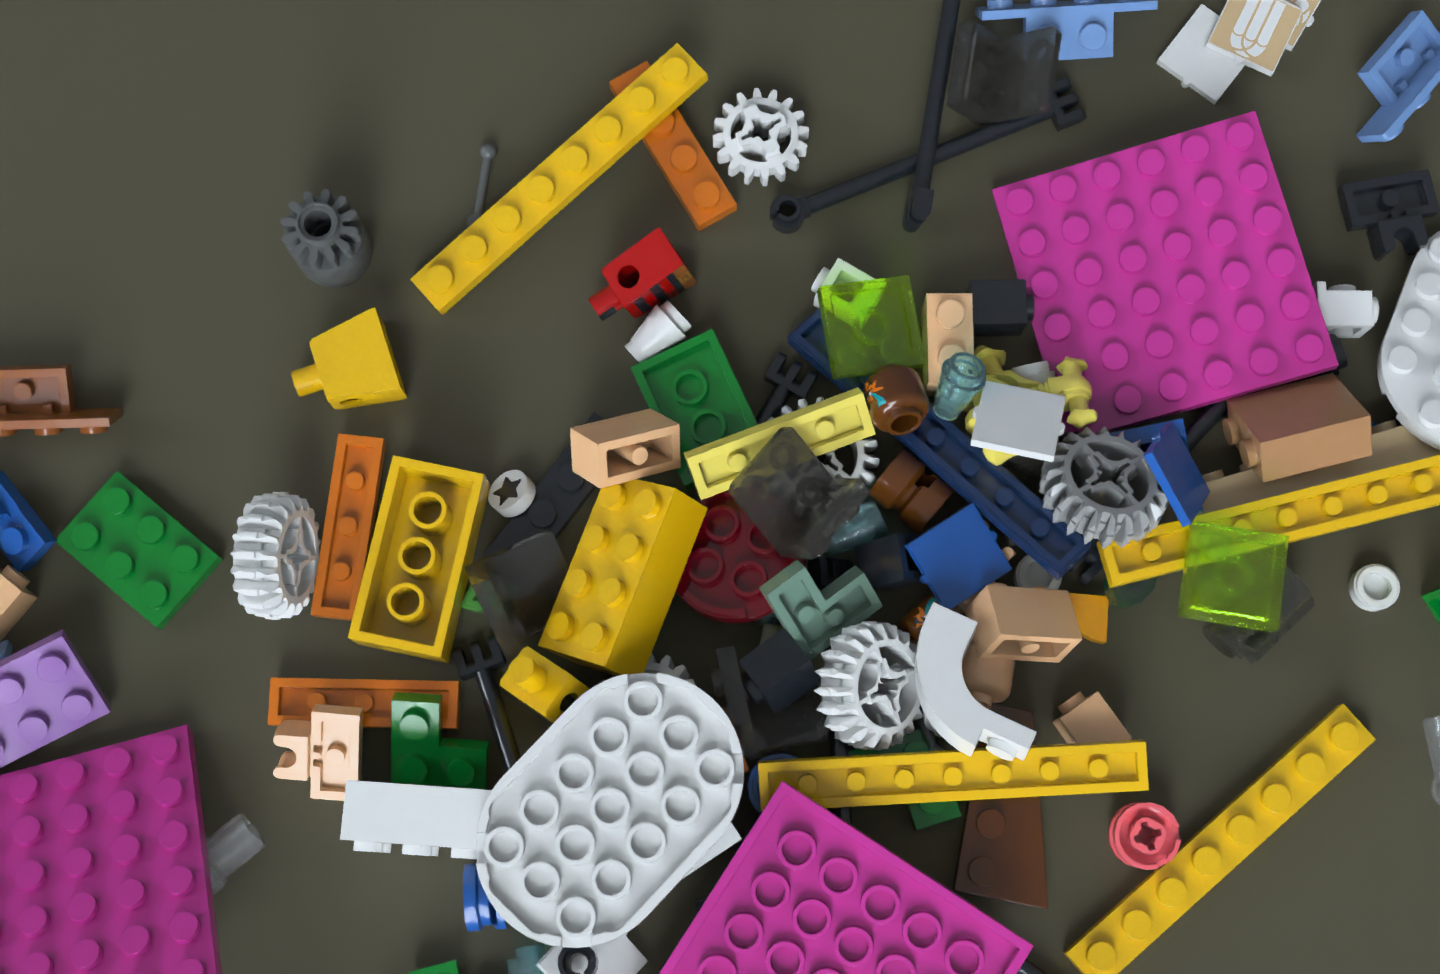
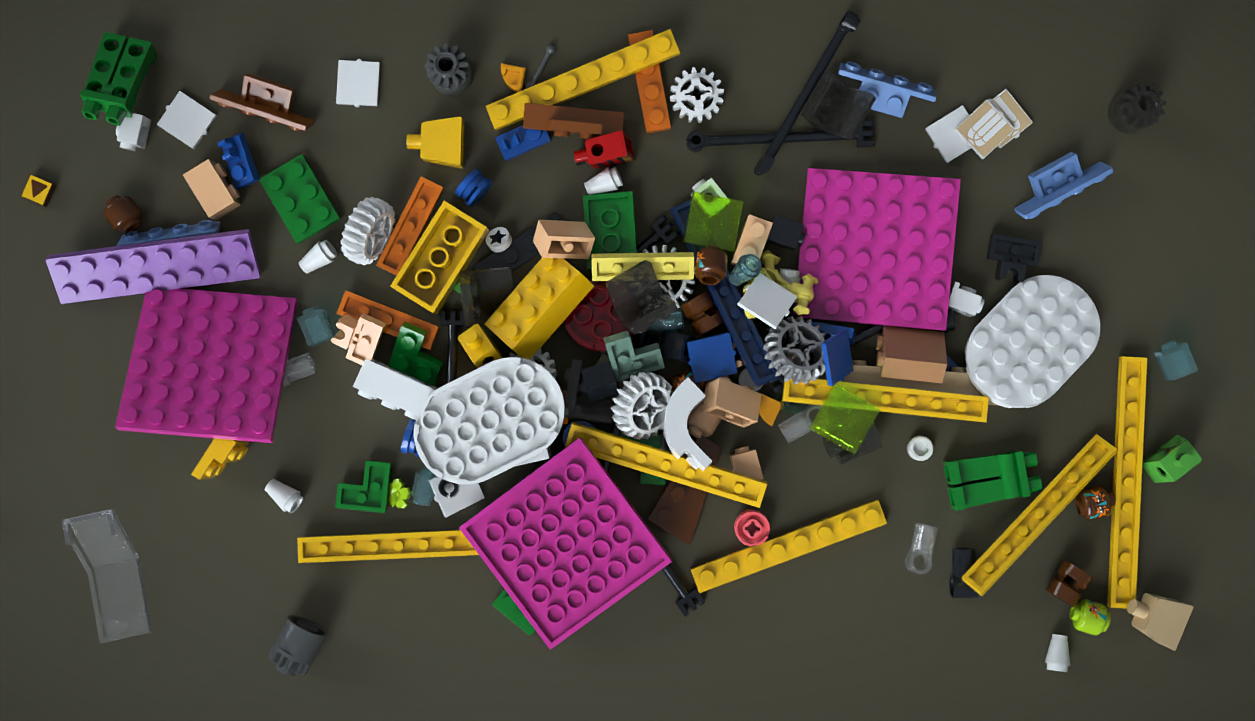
camera: 20 degrees right, 10 degrees up
(177, 320) = (358, 83): none -> white piece
(203, 637) = (318, 256): none -> white cone
(238, 761) = (316, 326): none -> clear light blue brick
(437, 420) = (473, 188): none -> blue wheel
(440, 216) = (513, 76): none -> light orange tile
(493, 313) = (521, 141): none -> blue plate
(561, 250) = (571, 120): none -> dark orange bracket
(1151, 621) = (797, 424): none -> clear piece

